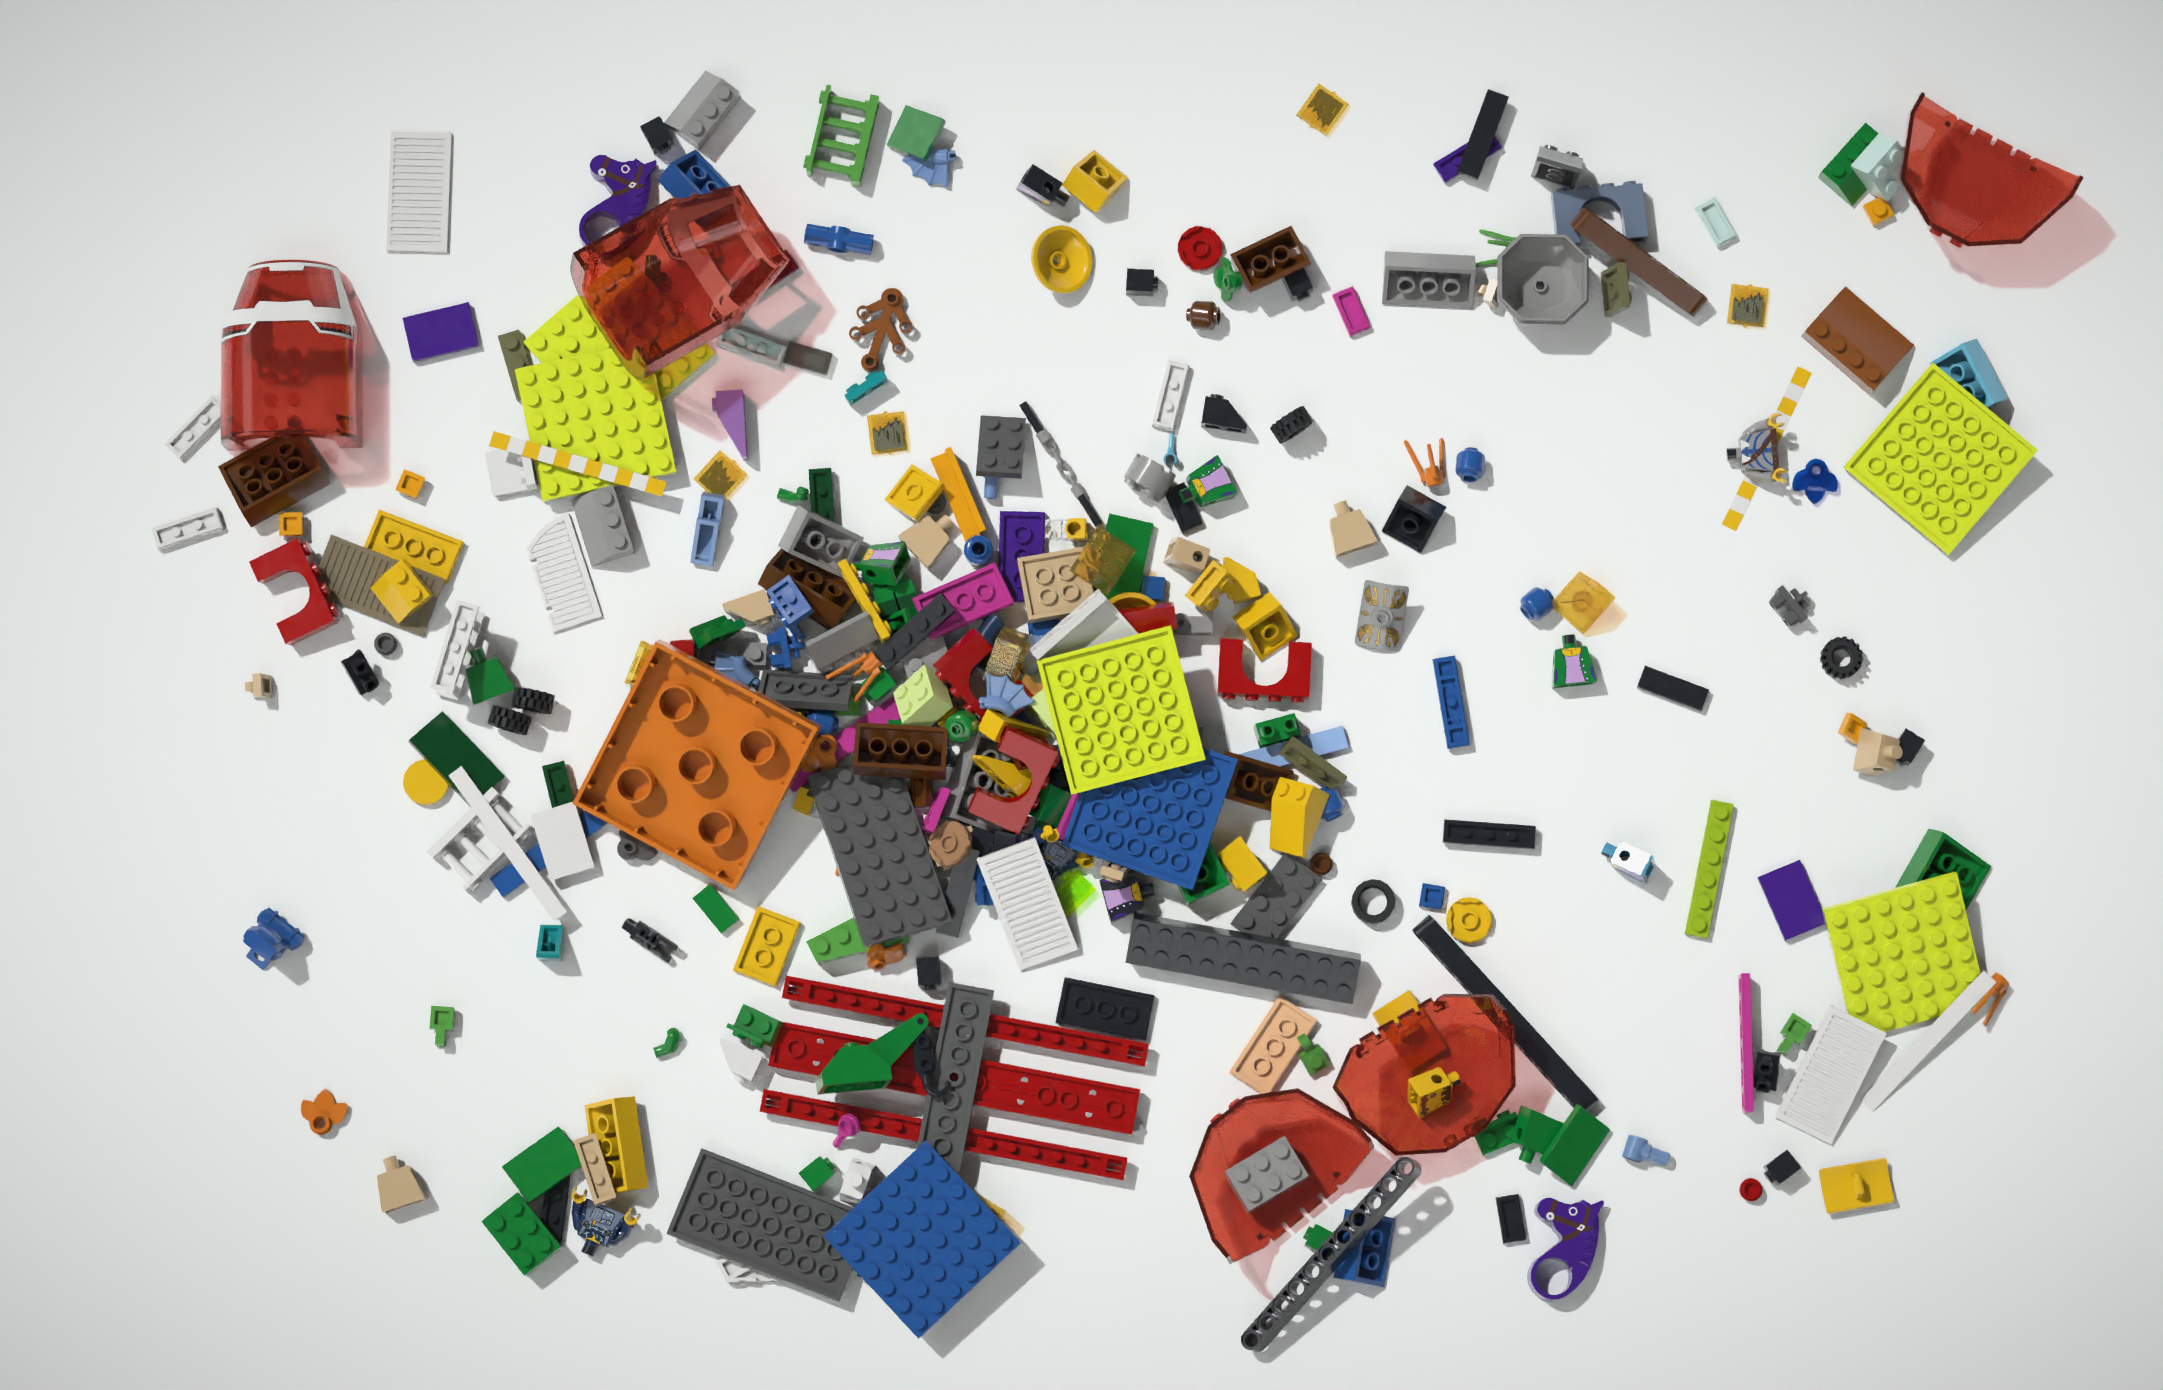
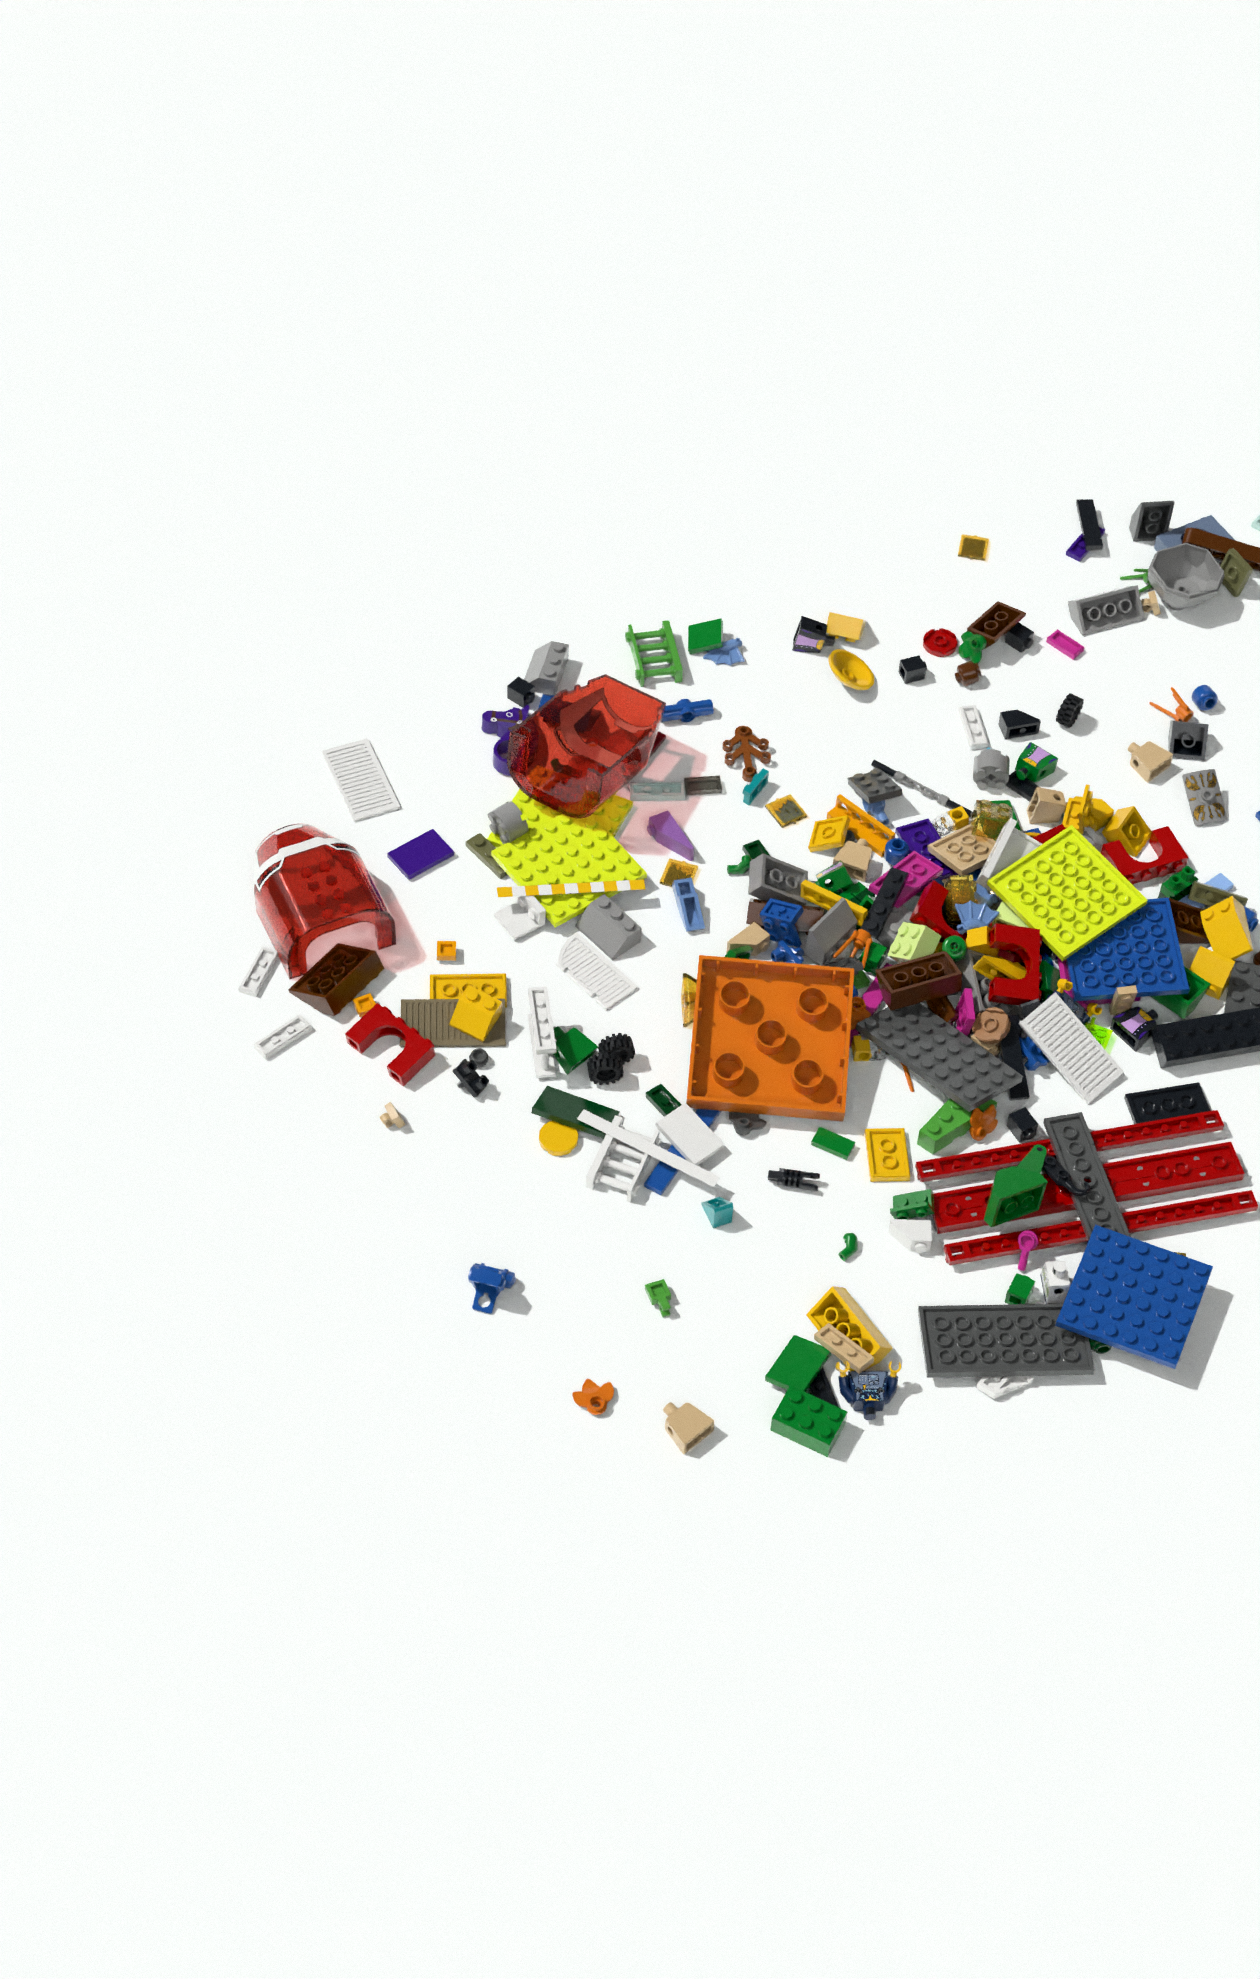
camera: 25 degrees left, 30 degrees down
(545, 342) = (507, 822): none -> light grey brick

